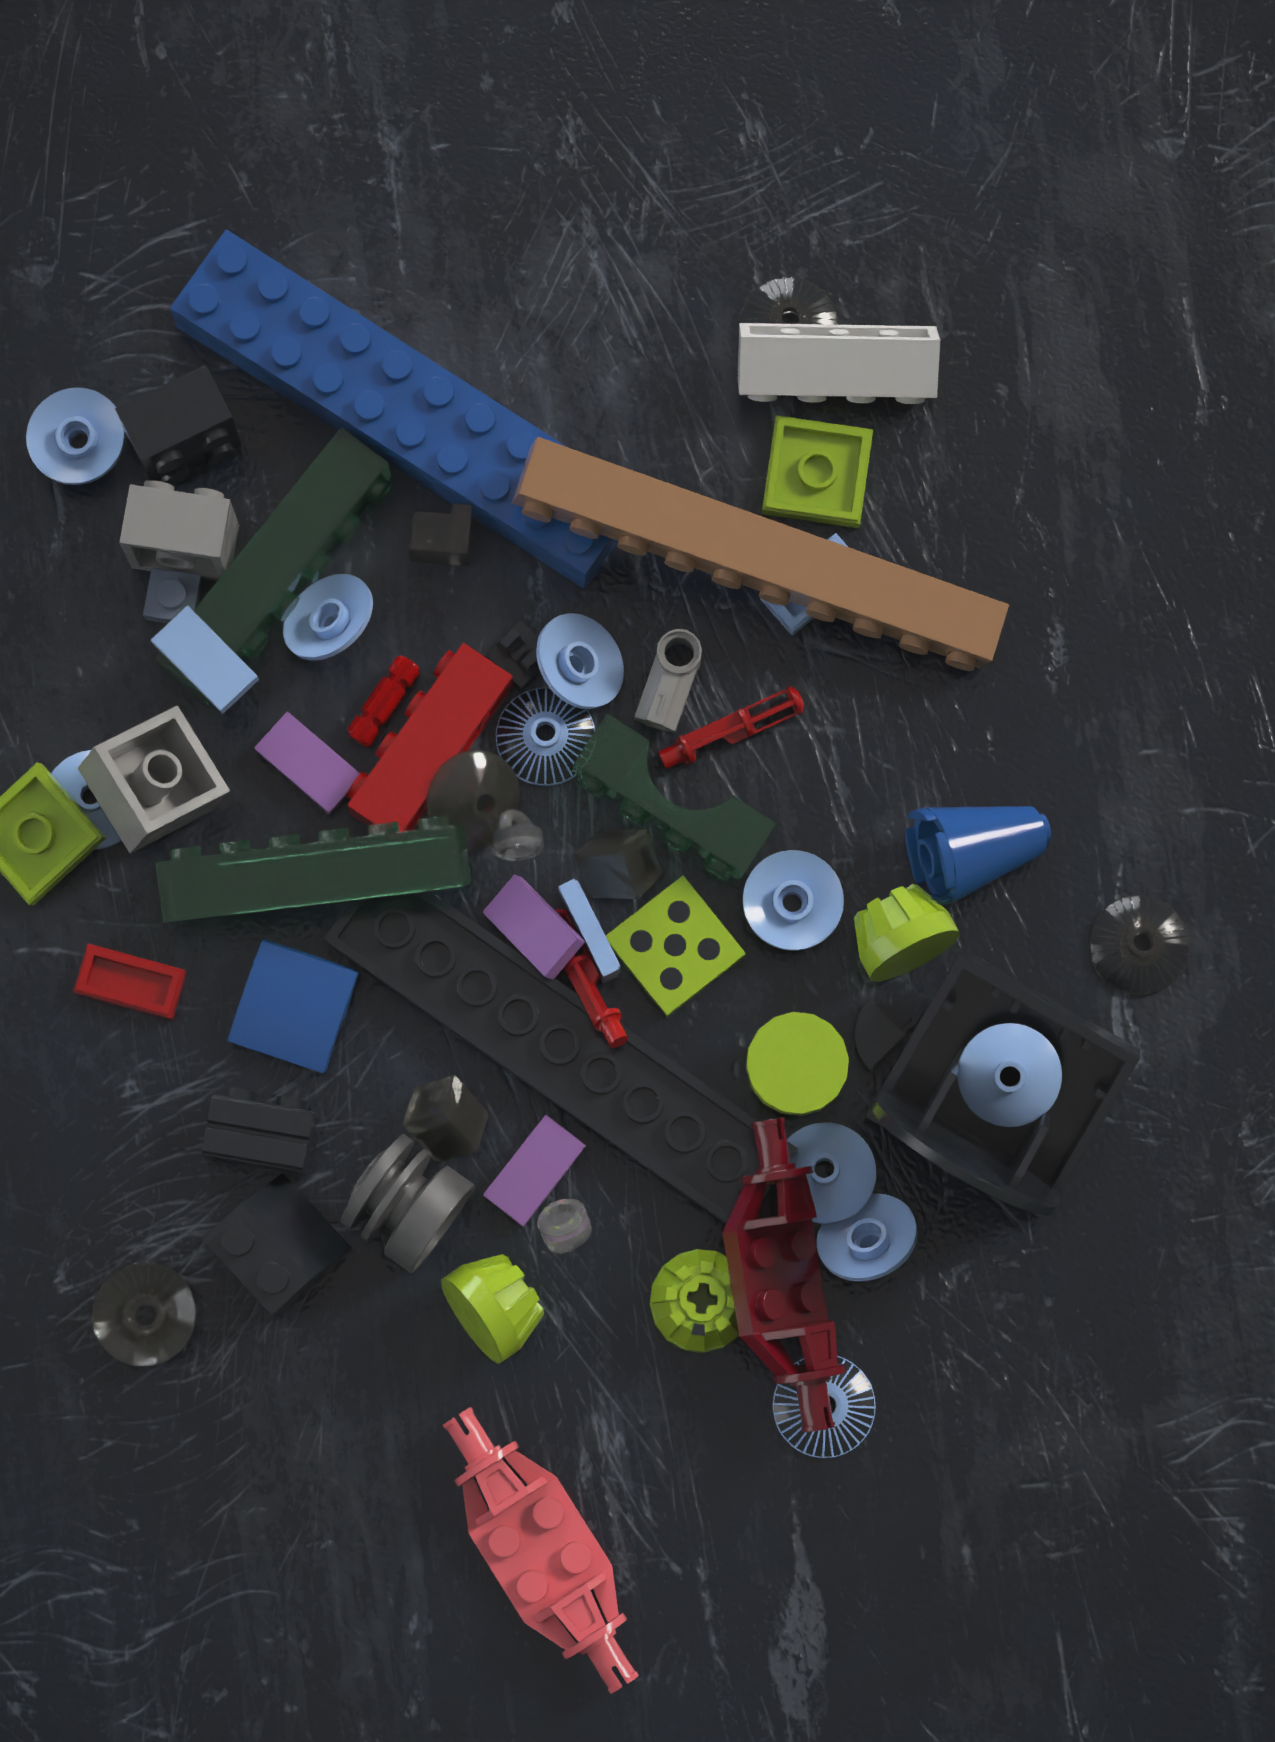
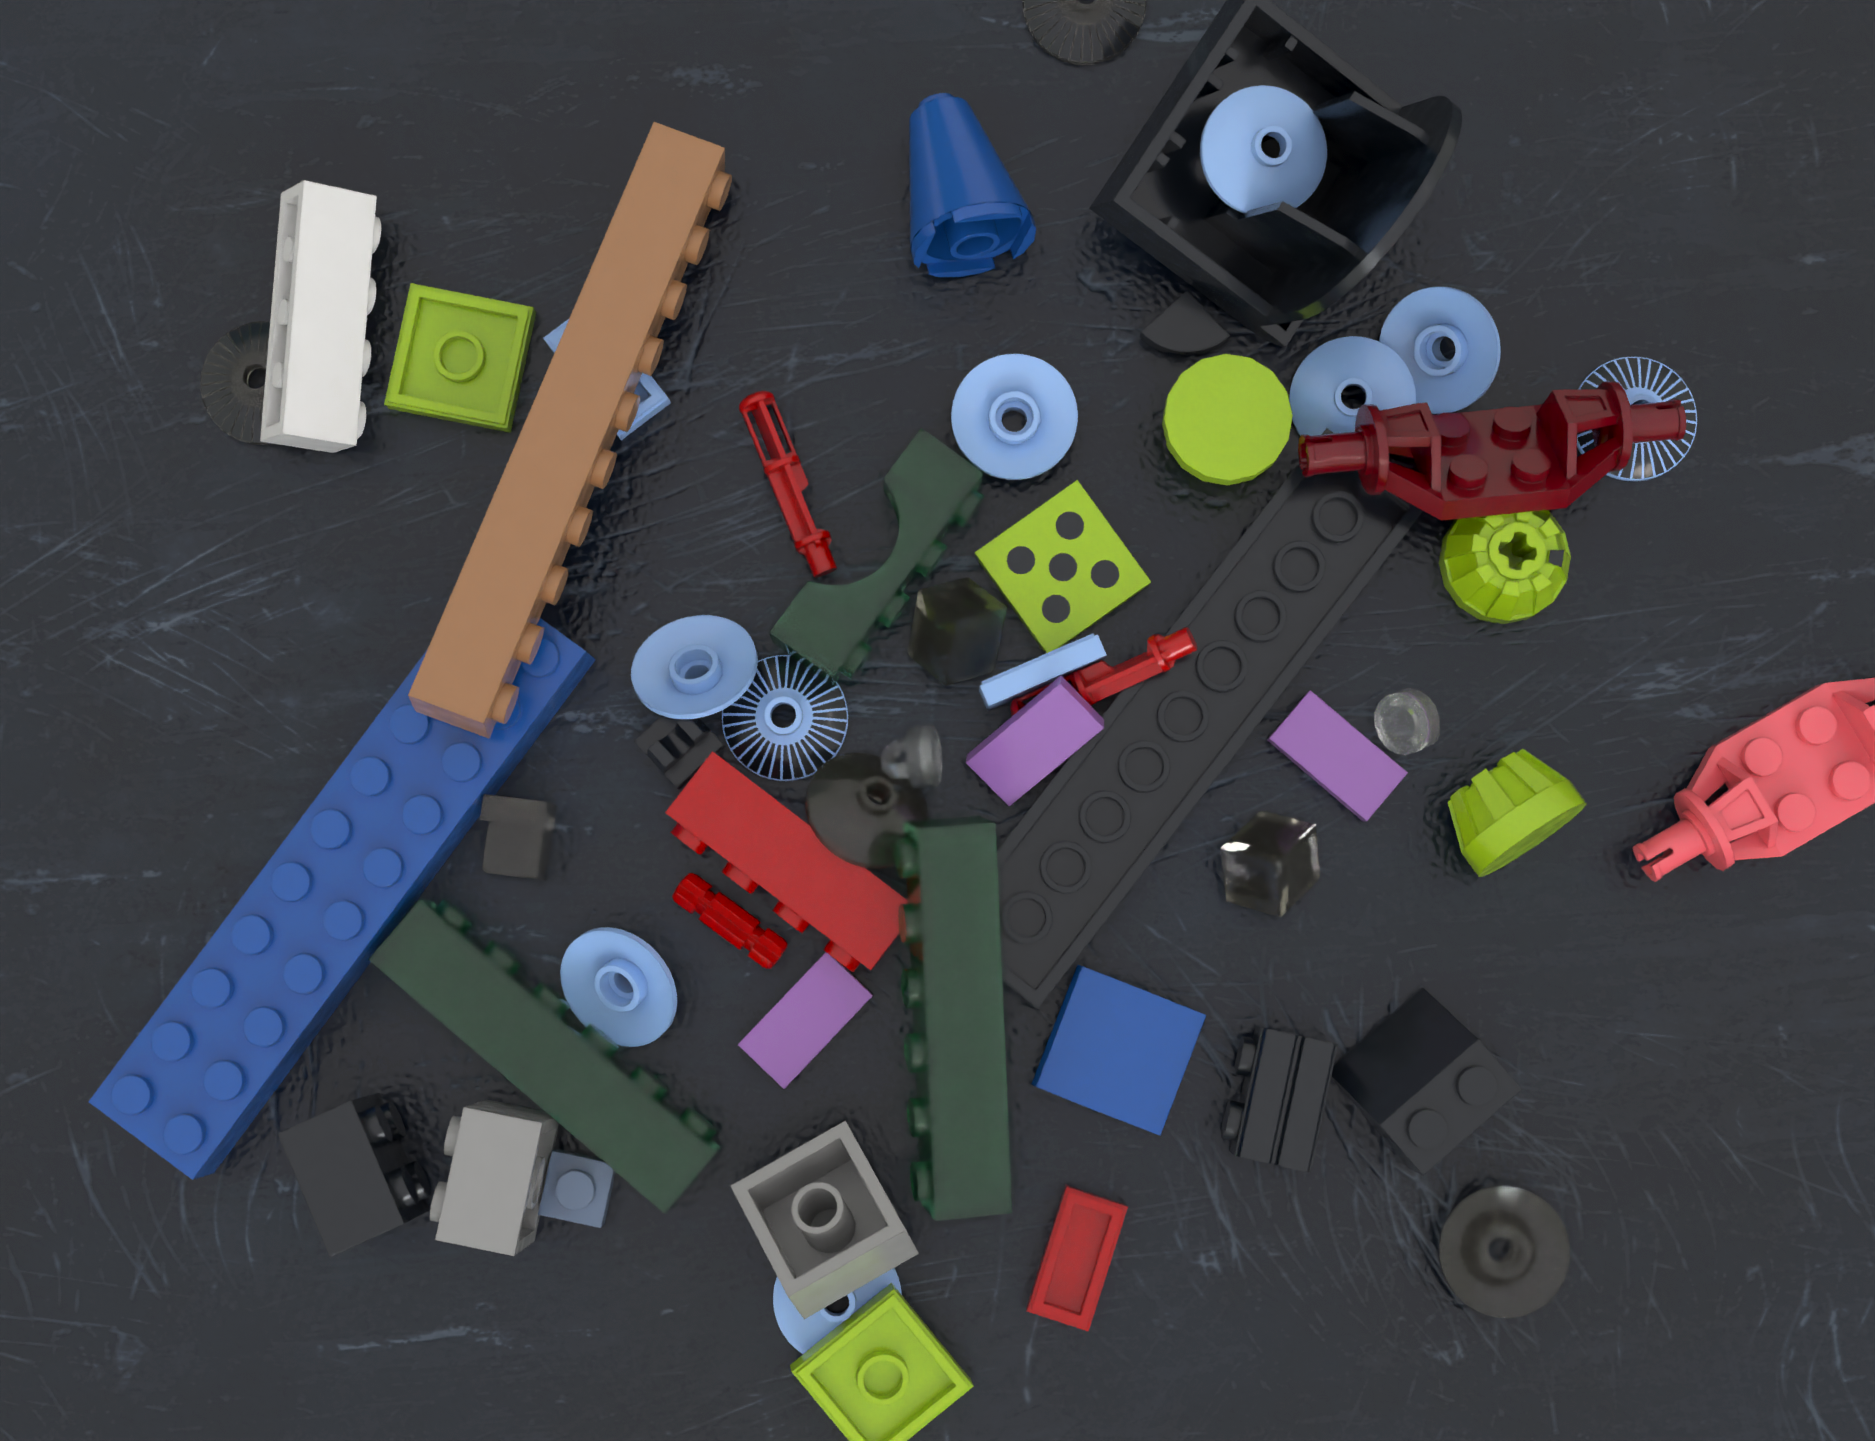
camera: 80 degrees left, 5 degrees up
(63, 418) = (337, 1334): light blue dish -> none
(204, 659) = (671, 1148): light blue tile -> none
(406, 1203) = (1384, 913): flat silver wheel -> none
(668, 684) = (731, 558): light grey piece -> none
(902, 932) = (1063, 282): lime piece -> none

